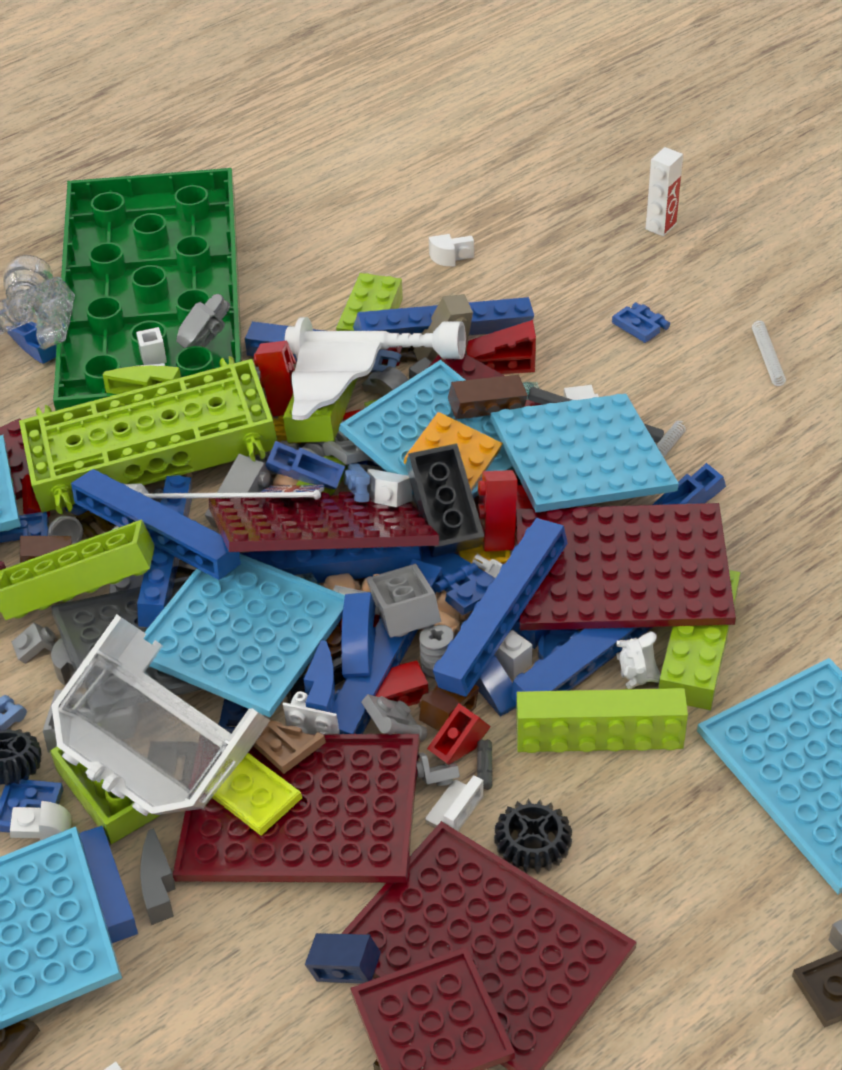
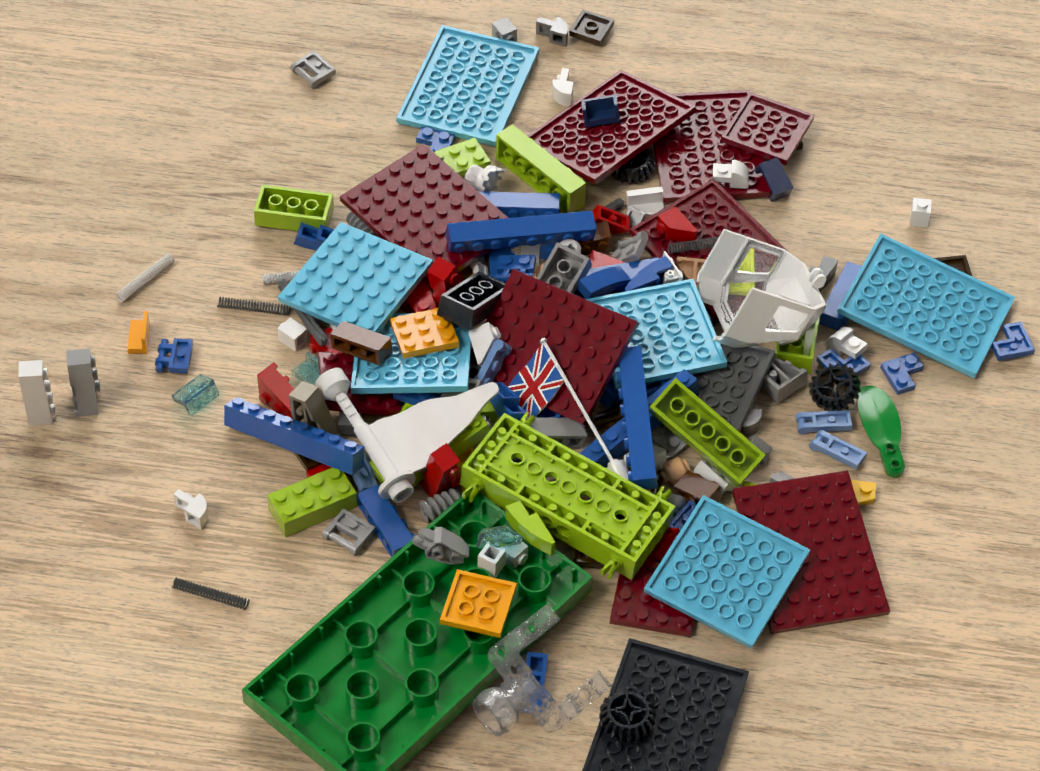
camera: 135 degrees left, 5 degrees up
(121, 311) = (478, 603): none -> light orange plate
(156, 346) = (498, 537): none -> clear light blue bracket
(298, 802) = (692, 245): none -> dark grey piece
(320, 318) = (352, 527): none -> light grey plate
(342, 229) = (211, 592): none -> dark grey piece
(365, 767) = (676, 226): none -> red slope
(390, 906) = (735, 174): none -> white brick
(578, 309) = (196, 393): none -> clear light blue bracket
(608, 846) = (600, 150): none -> dark red plate
(631, 830) = (600, 110): none -> dark blue panel
(658, 236) = (83, 381): none -> light grey wedge
(664, 395) = (256, 309): none -> dark grey piece
(691, 314) = (139, 335): none -> light orange panel
(733, 857) = (562, 88): none -> white brick
(749, 680) = (435, 138): none -> plate
(753, 485) = (289, 207): none -> lime brick

